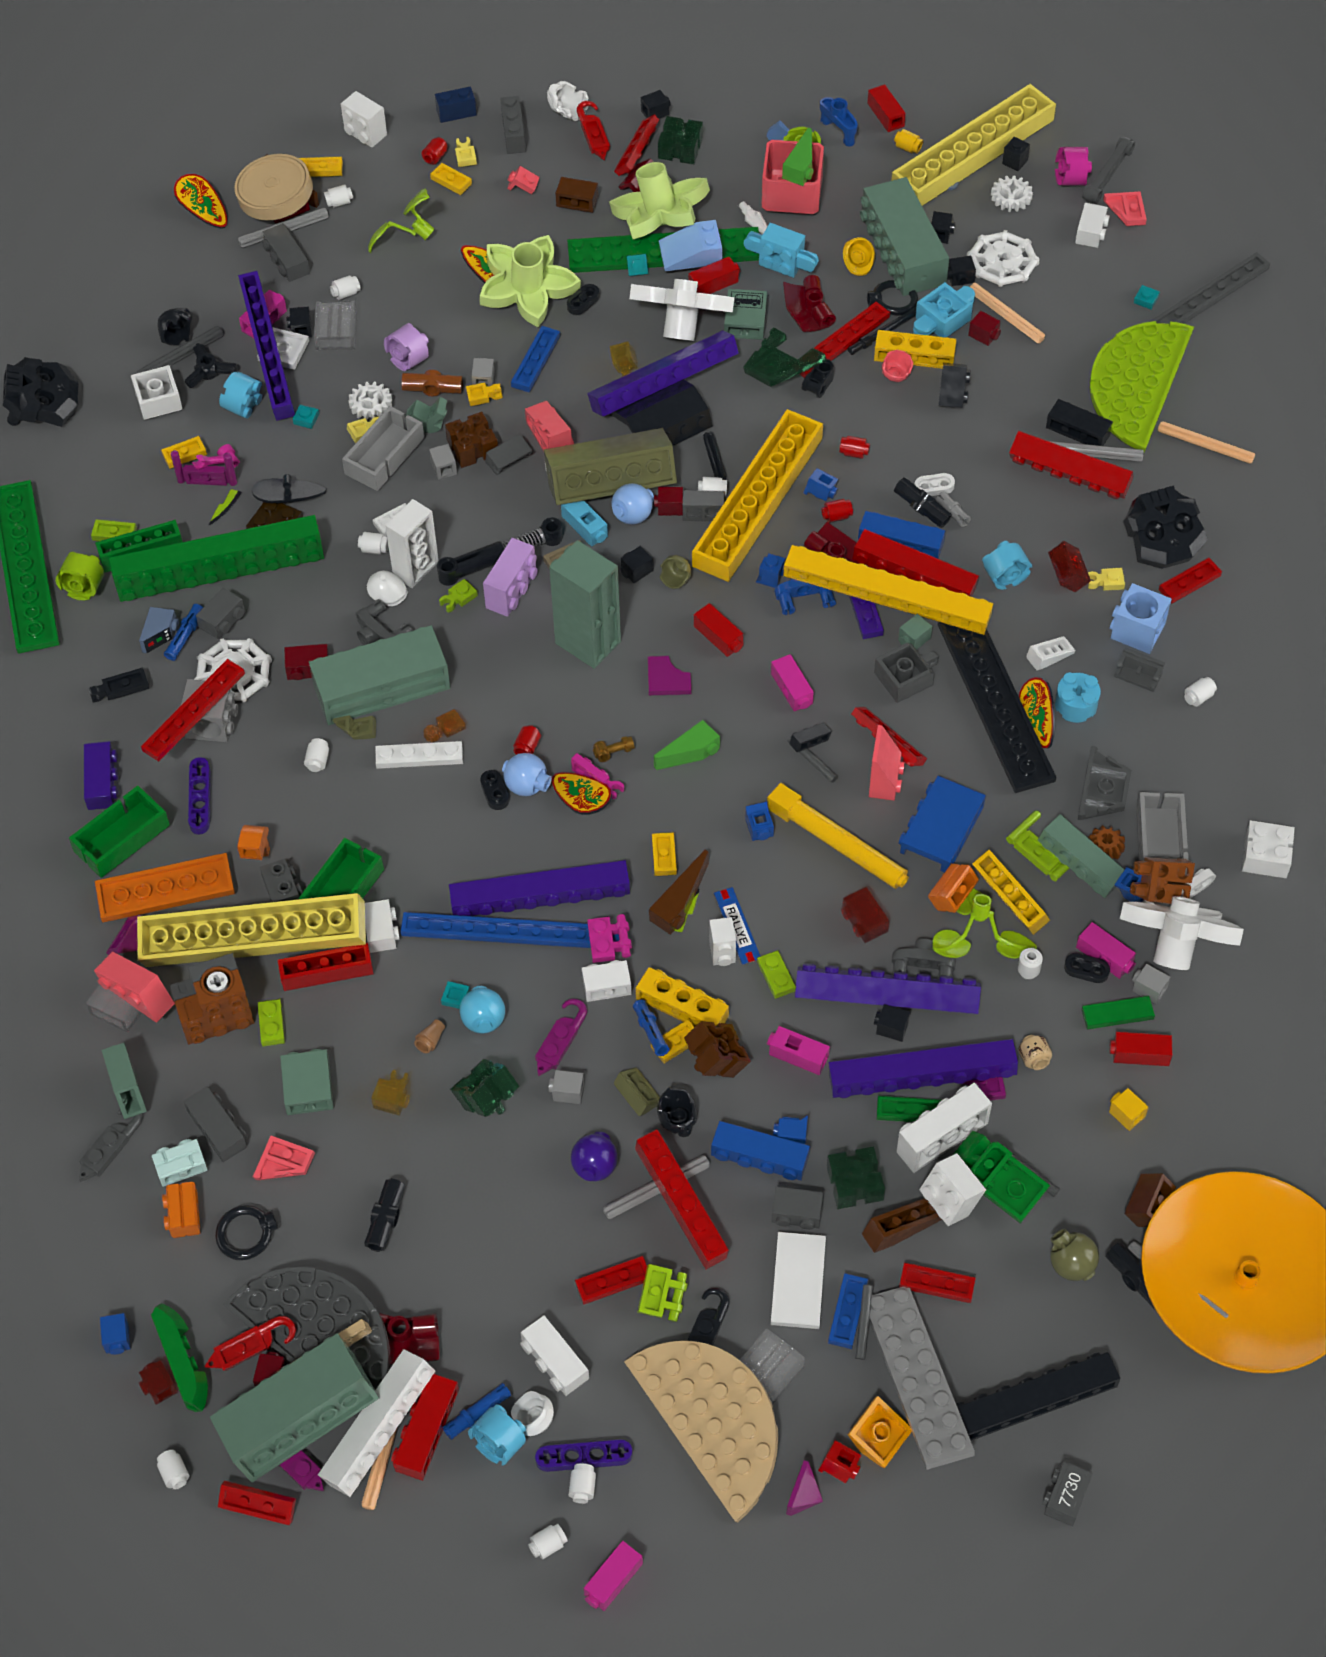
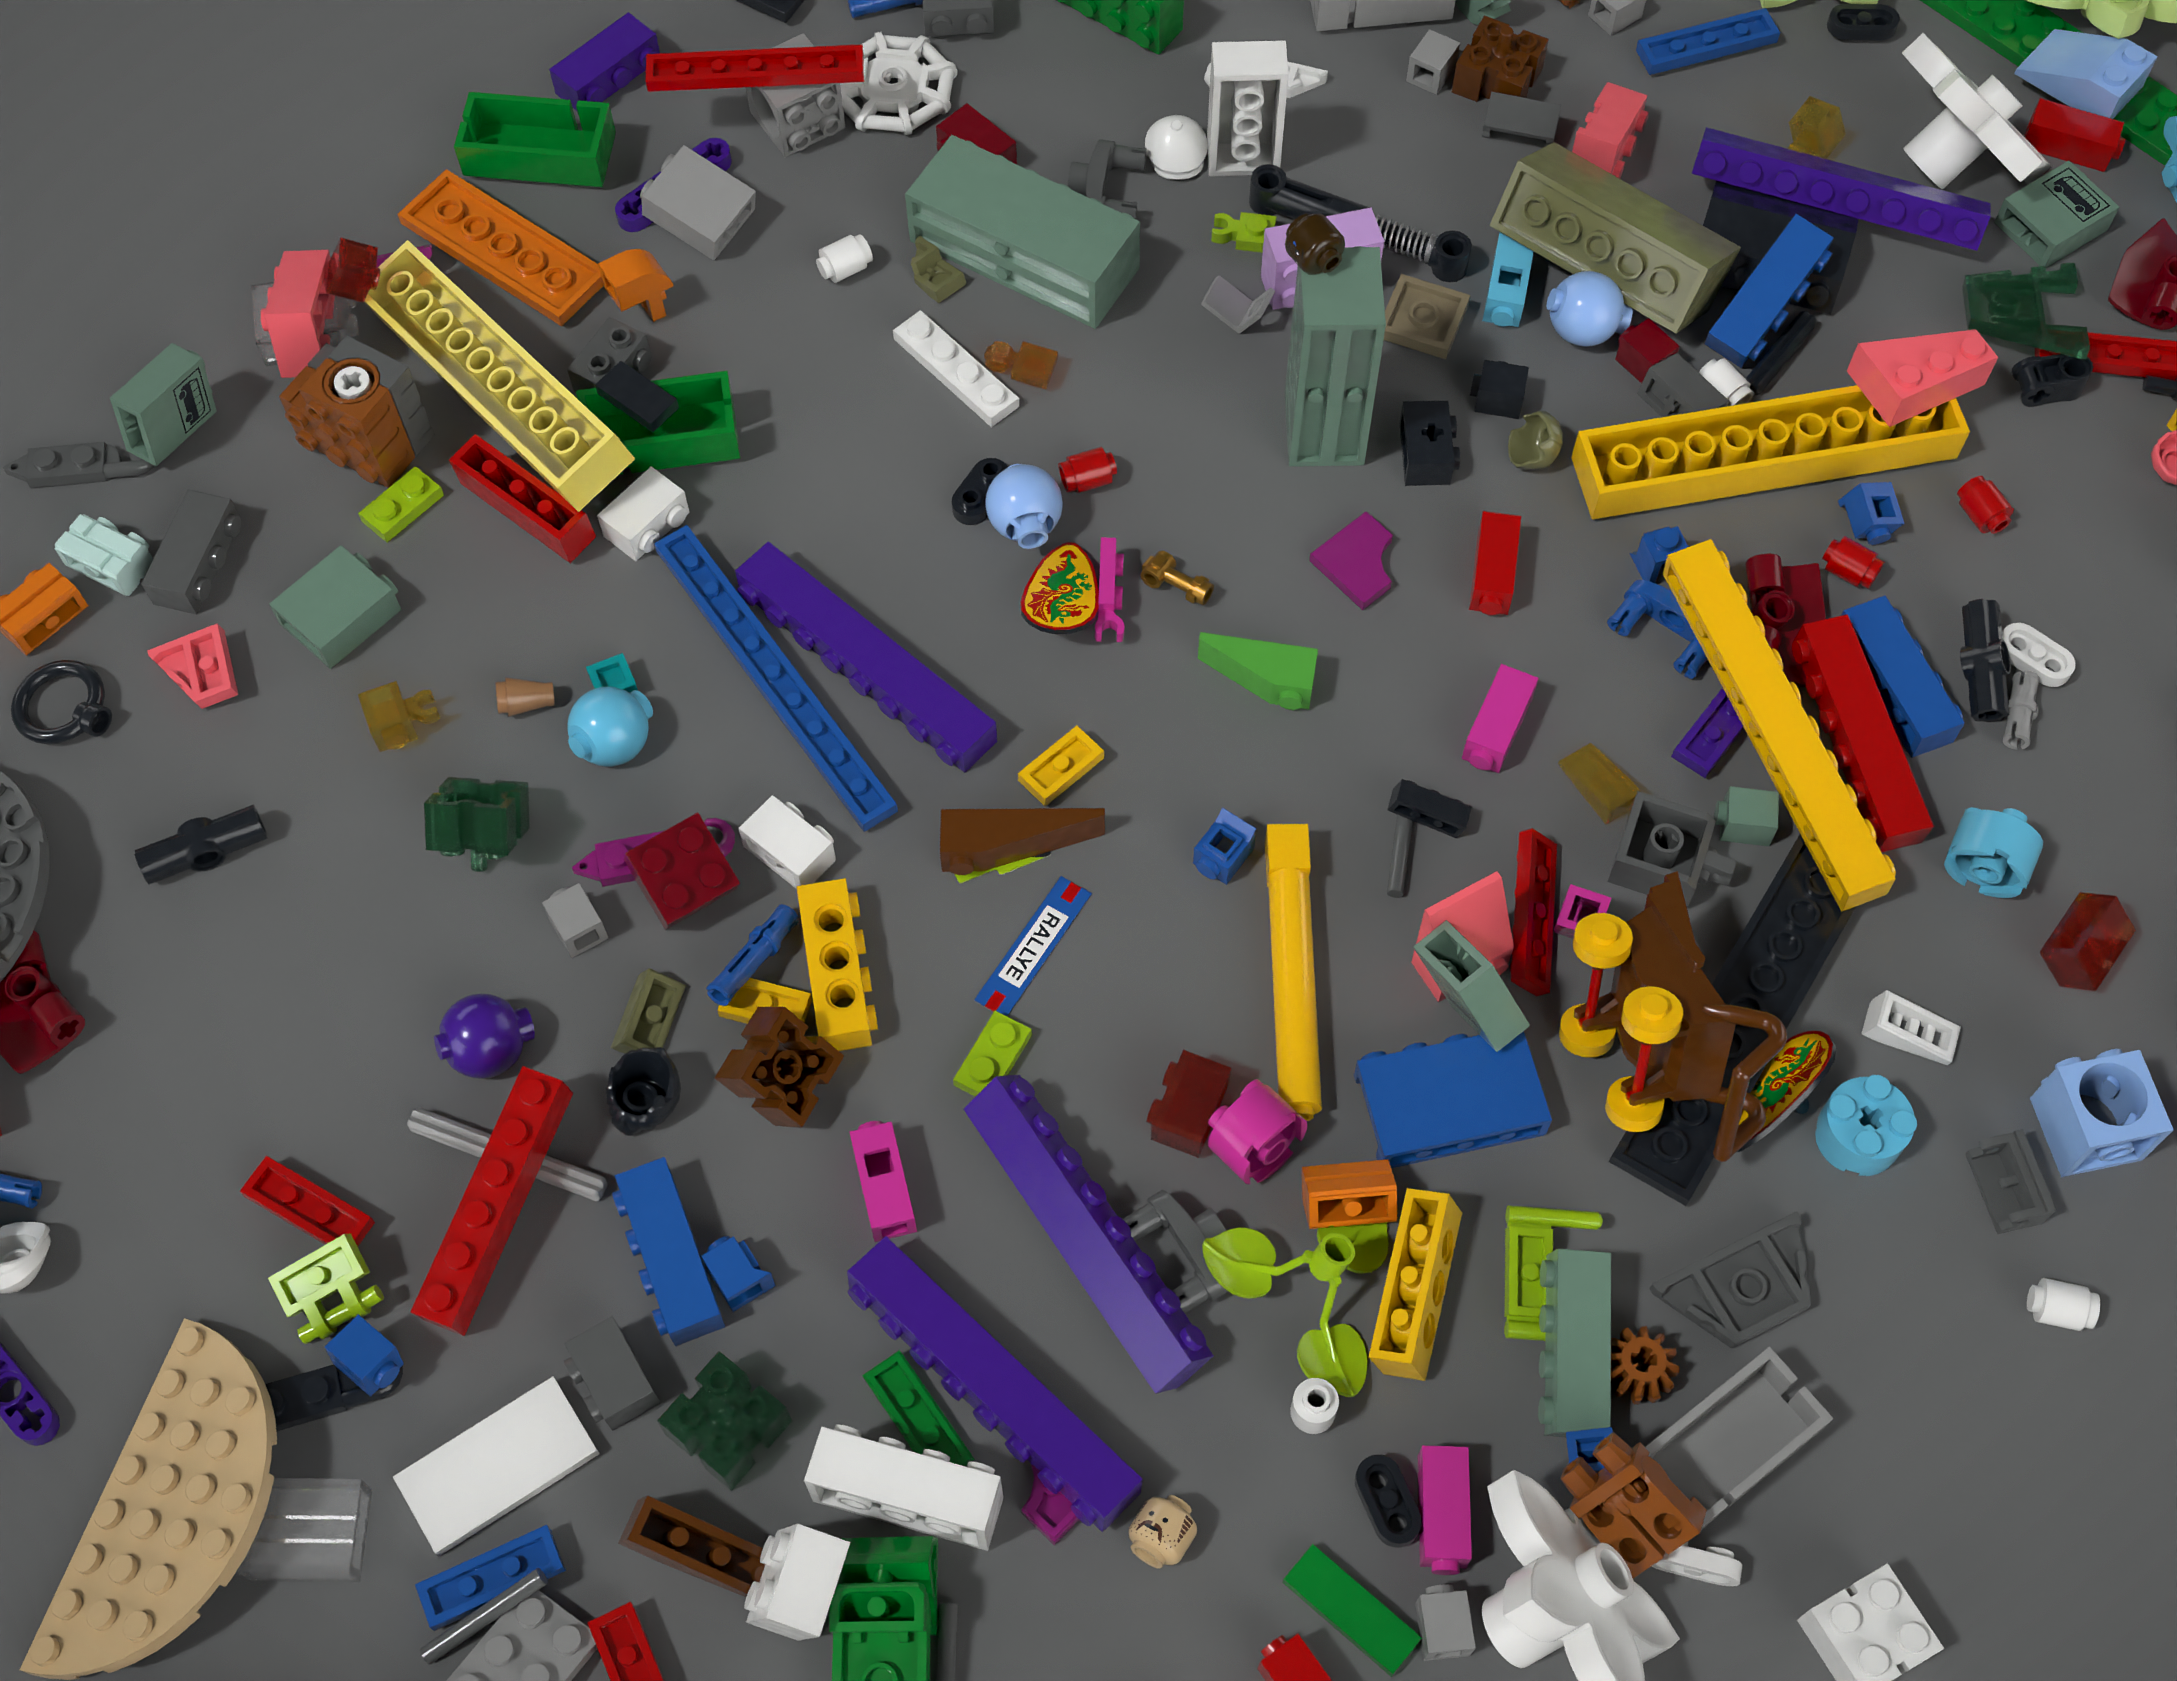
camera: 50 degrees right, 5 degrees up
(138, 946) = (353, 270): none -> clear red brick
(227, 790) = (697, 202): none -> light grey brick
(325, 880) = (636, 396): none -> black tile
(480, 393) = (1588, 23): yellow plate -> none
(498, 628) = (1233, 306): none -> light grey bracket
(554, 1356) = (126, 1218): white brick -> none
(558, 559) = (1314, 244): none -> dark brown head
(586, 1027) = (681, 870): none -> dark red brick
(601, 938) = (844, 787): dark pink plate -> none
(637, 264) = (1989, 37): teal plate -> none
(638, 610) = (1428, 443): none -> black brick
(689, 436) = (1769, 290): none -> blue brick
(710, 1294) = (365, 1356): none -> blue brick
(722, 941) = (969, 942): white brick -> none
(783, 417) = (1920, 371): none -> coral wedge
(851, 671) = (1600, 782): none -> clear yellow slope
(892, 1022) = (1039, 1278): black brick -> none
(899, 900) = (1255, 1132): none -> dark pink brick
(911, 718) = (1577, 905): none -> dark pink brick
(912, 774) = (1471, 985): none -> sand green brick
(986, 720) = (1665, 1019): none -> reddish brown piece
(1108, 578) = (2132, 1018): light yellow plate -> none

